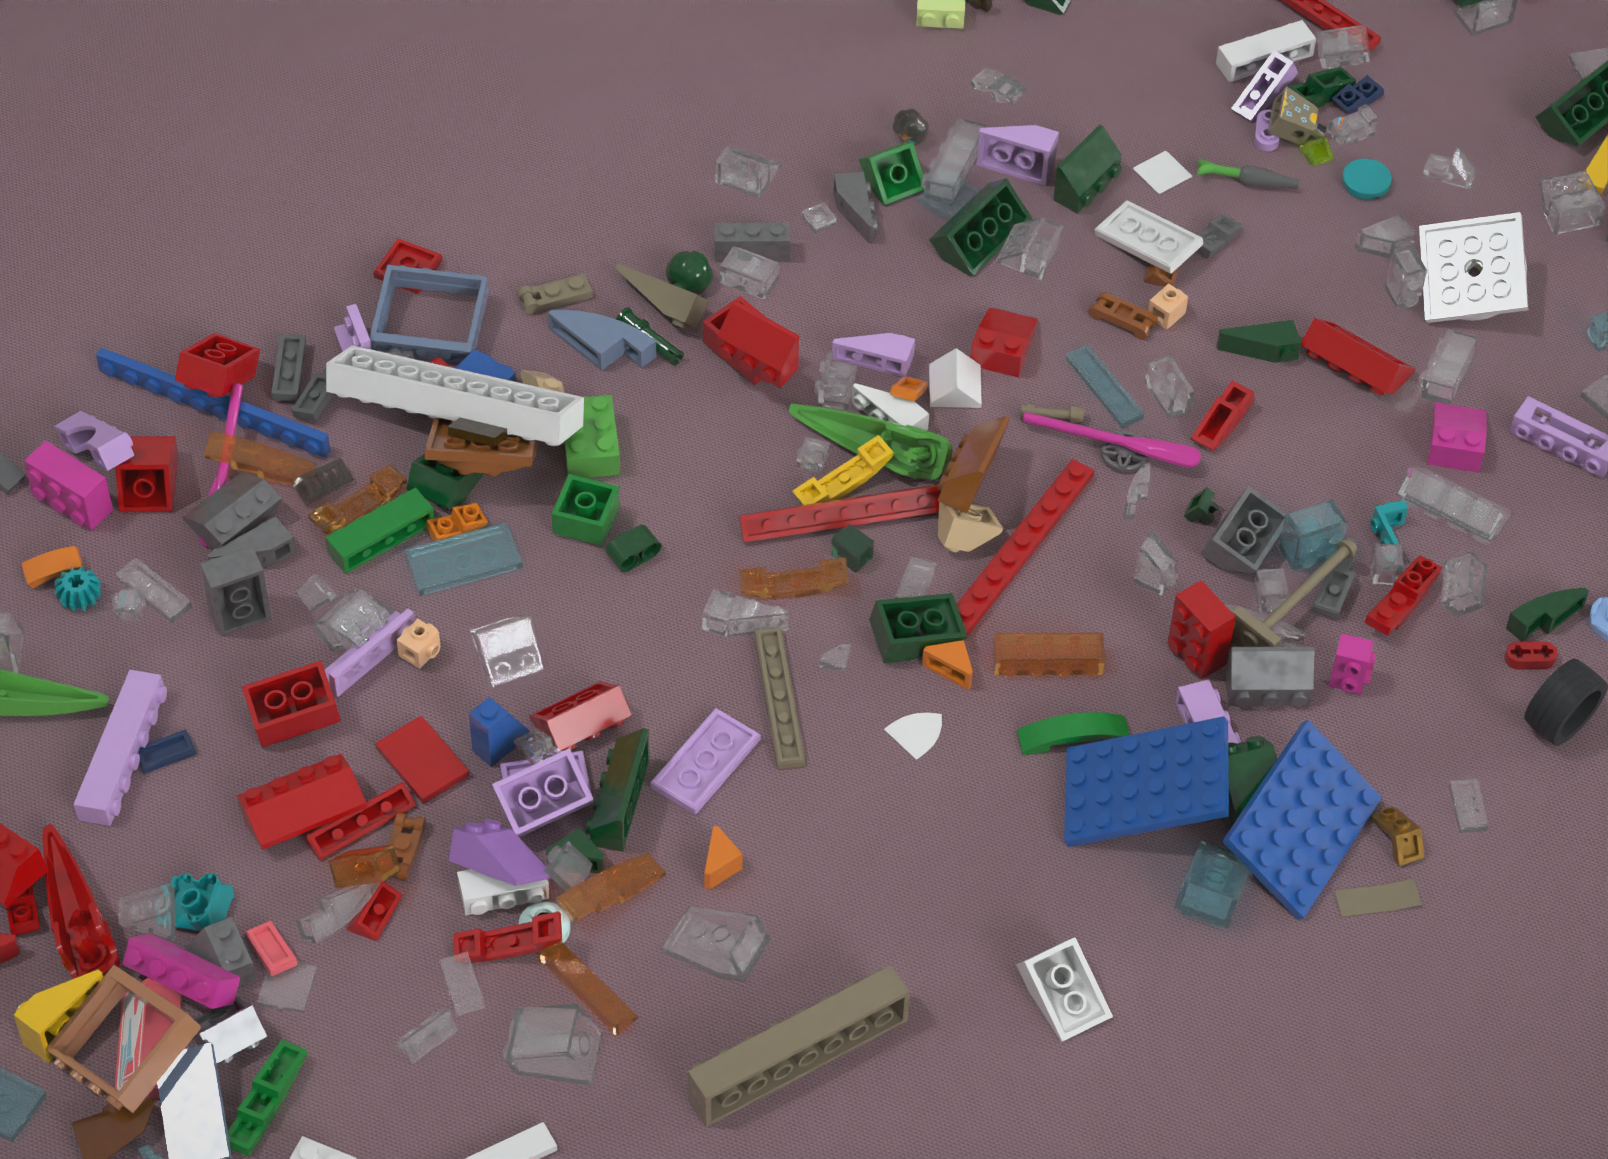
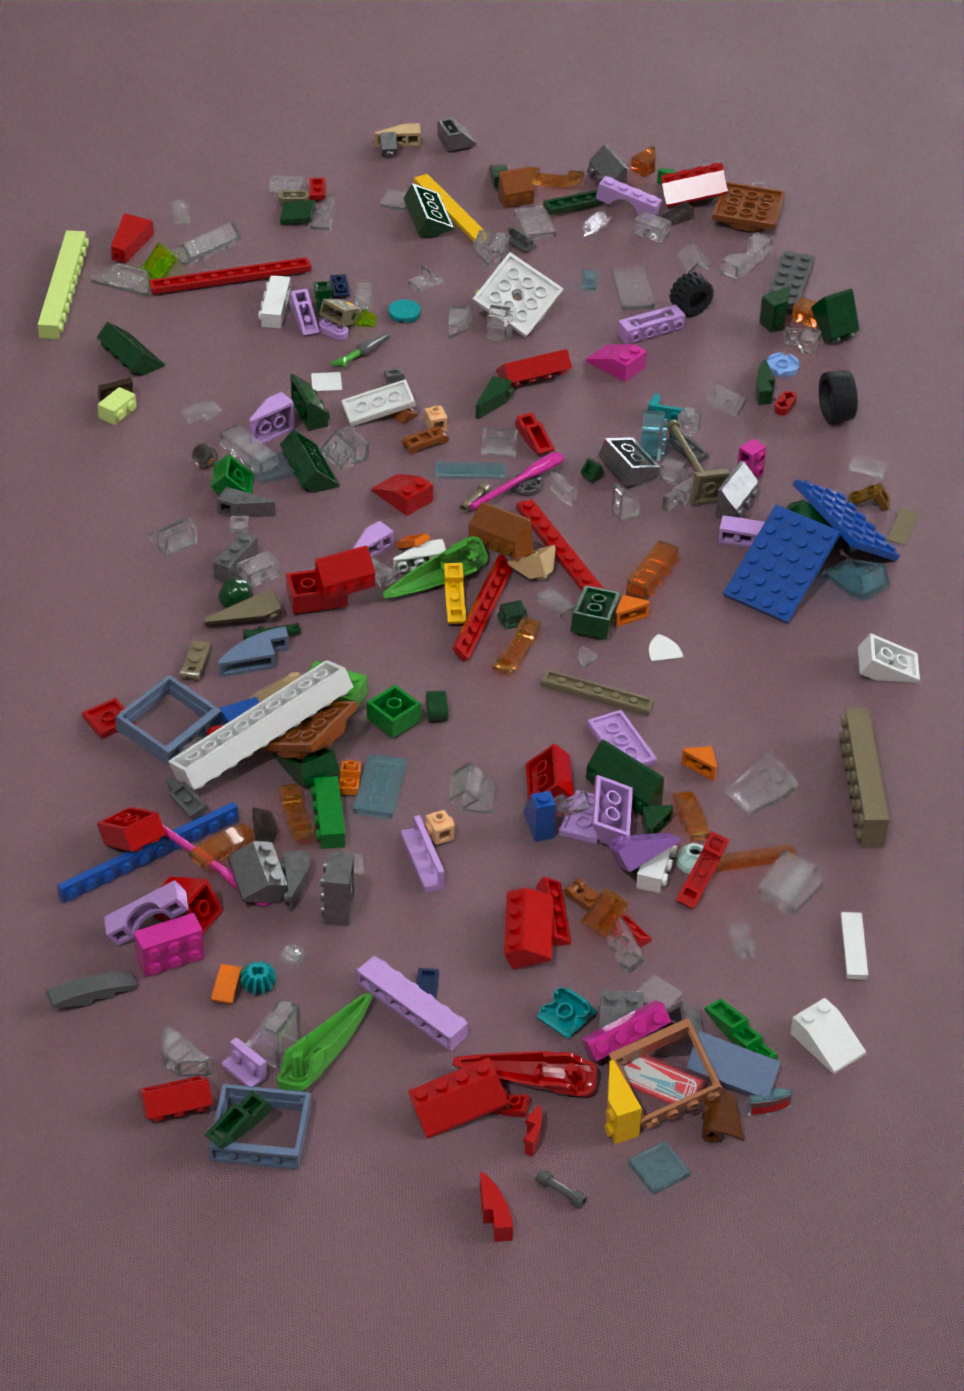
camera: 60 degrees left, 10 degrees down
(150, 911) = (563, 1033): clear wing -> none
(155, 590) = (273, 943): clear plate -> none
(271, 948) = (629, 985): coral tile -> none
(289, 367) = (141, 799): dark grey plate -> none
(291, 704) = (445, 902): red brick -> none
(352, 331) = (154, 760): lavender bracket -> none
(352, 620) = (401, 847): clear slope -> none
(422, 759) = (527, 864): red tile -> none
(462, 983) = (719, 912): clear slope -> none
(477, 431) = (308, 721): dark brown tile -> none
(567, 866) = (669, 822): clear brick -> none
(740, 616) = (524, 683): clear slope -> none
(813, 454) = (424, 604): clear bracket -> none
(955, 381) = (413, 522): white slope -> none
(1070, 729) = (711, 588): green slope -> none
(1201, 629) = (692, 499): red brick -> none
(1343, 46) = (305, 270): clear brick -> none
(1404, 596) = (714, 428): red slope -> none
(1448, 367) = (570, 338): clear brick -> none
(1453, 503) = (666, 380): clear slope -> none

